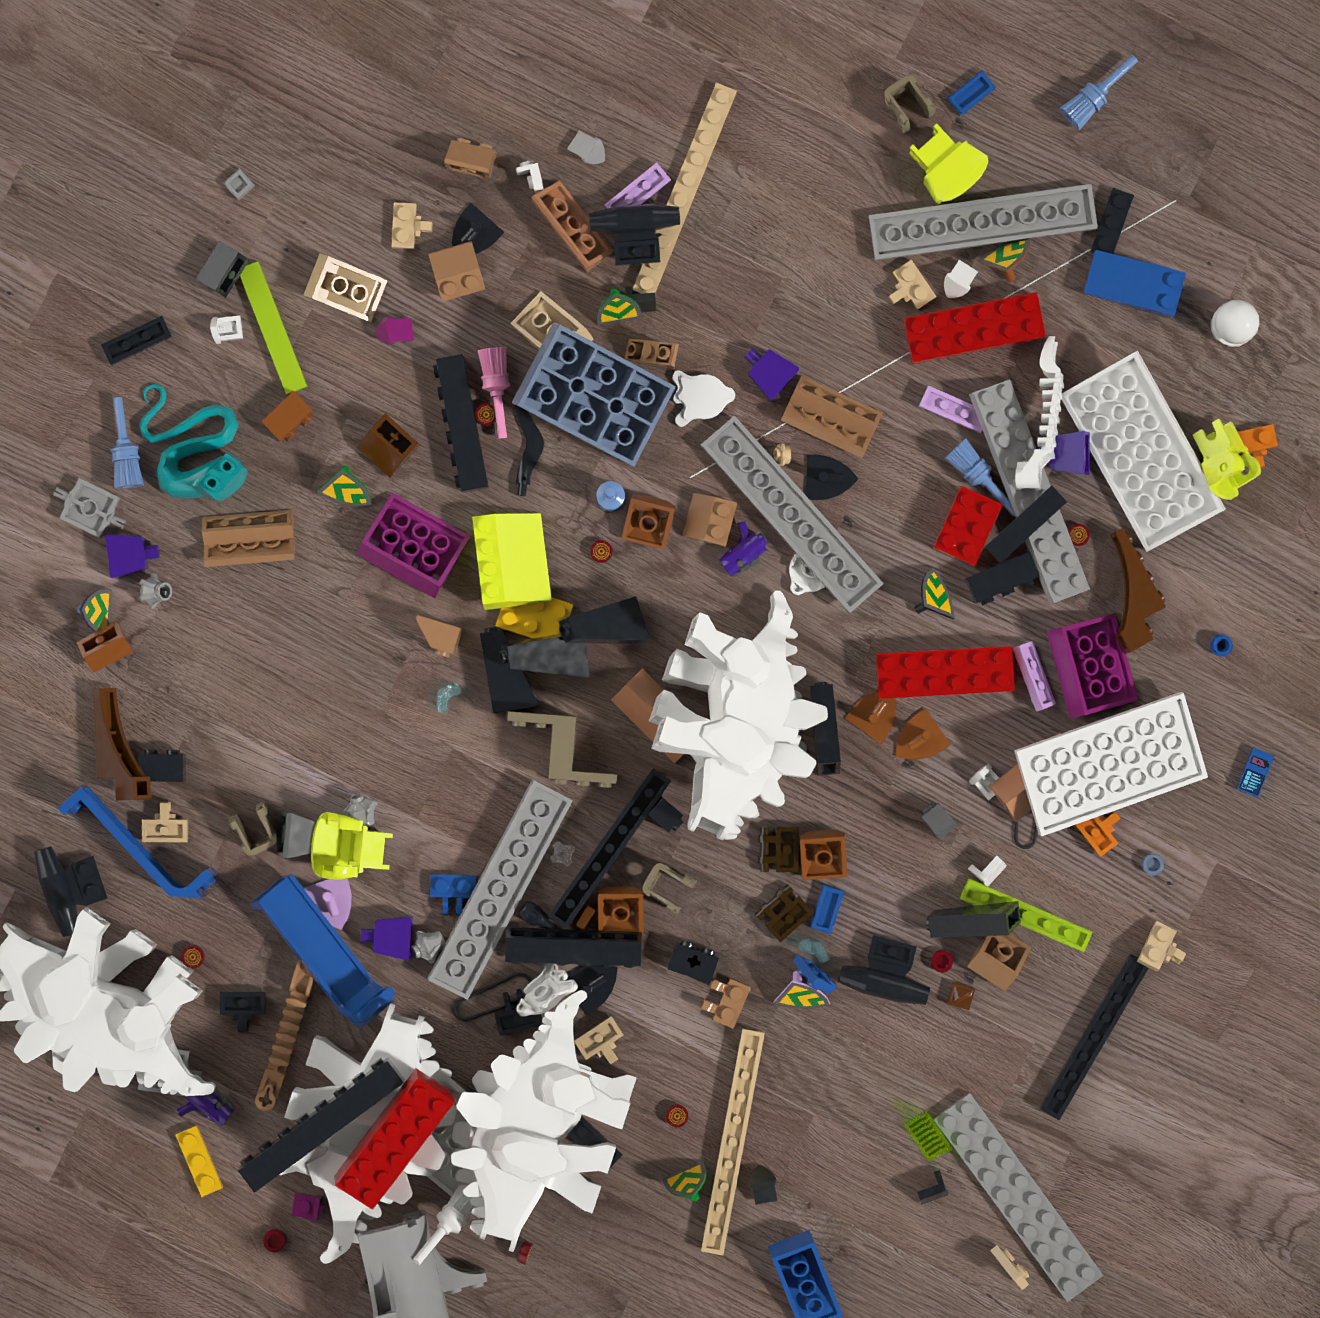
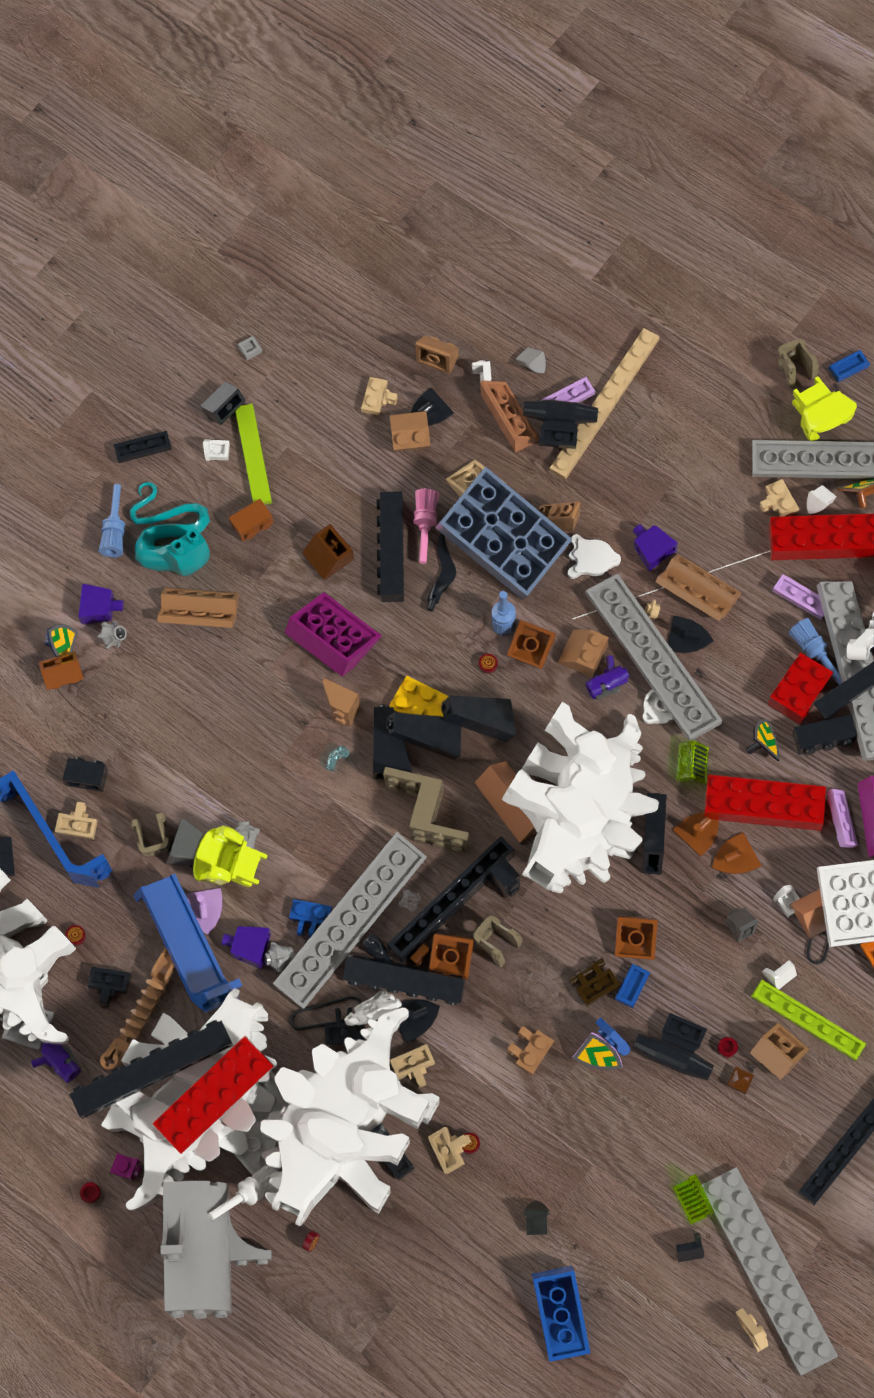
camera: 15 degrees right, 20 degrees down
(89, 508) = (74, 565): light grey plate -> none
(113, 753) = (47, 755): reddish brown arch -> none
(199, 1161) = (40, 1111): yellow plate -> none
(345, 287) = (318, 432): tan slope -> none
(345, 489) = (286, 580): shield -> none
(395, 330) = (351, 469): magenta tile -> none
(485, 414) = (412, 544): dark red tile -> none
(511, 560) = (411, 655): neon yellow slope -> none
(617, 309) = (535, 478): shield -> none
(646, 301) = (554, 477): pearl dark grey tile -> none
(655, 1128) = (448, 1149): none -> tan hinge
(680, 964) = (513, 1019): black brick -> none
(687, 1181) = (468, 1201): shield -> none
(732, 1141) = (515, 1175): tan plate -> none
(786, 849) = (604, 930): dark brown plate -> none
(815, 947) = (615, 1016): clear light blue arm -> none
(855, 635) = (692, 762): none -> clear neon green panel
(976, 920) = (761, 1012): black slope -> none

